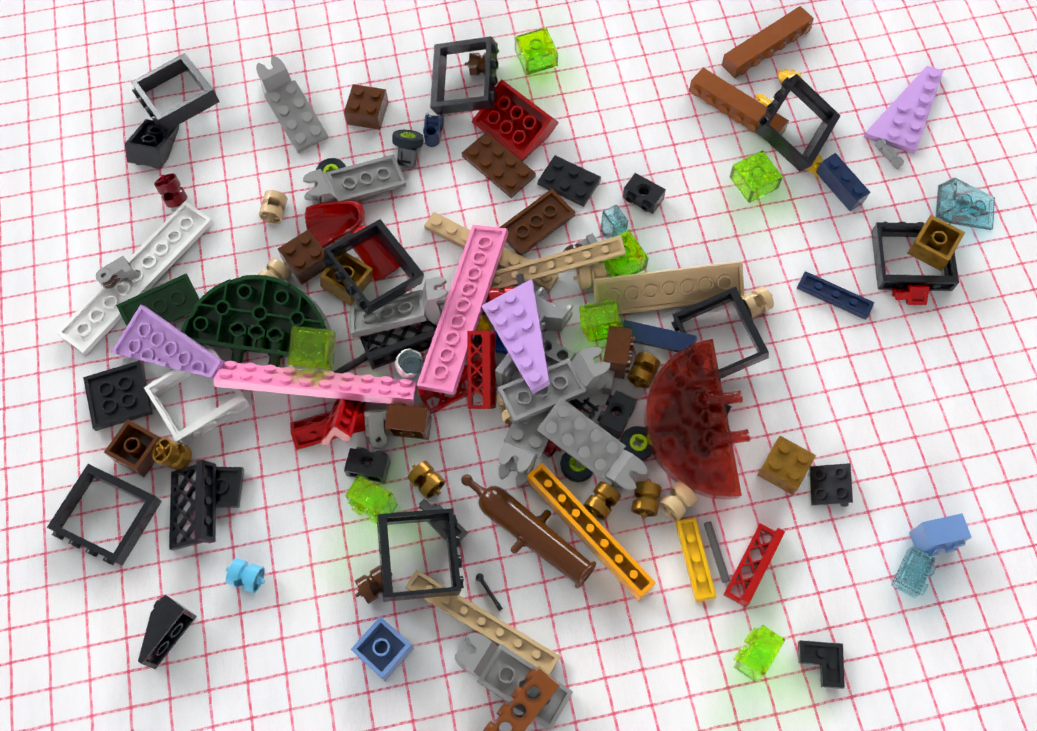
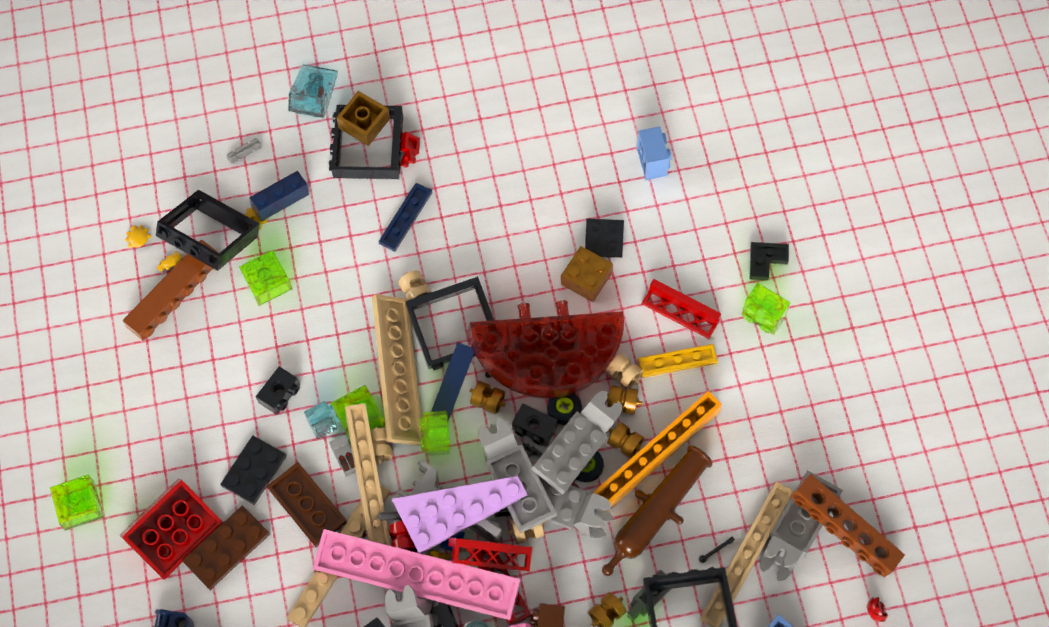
camera: 90 degrees left, 0 degrees up
(441, 51) = (109, 615): black window -> none
(476, 63) = (86, 566): reddish brown wheel -> none
(556, 353) = (471, 475): light grey leg -> none
(619, 350) = (467, 418): reddish brown brick -> none
(716, 552) = (670, 341): dark grey bar -> none
(767, 42) = (90, 254): dark orange brick -> none
(906, 117) = (197, 129): lavender wing -> none
(914, 572) = (684, 179): clear light blue brick -> none

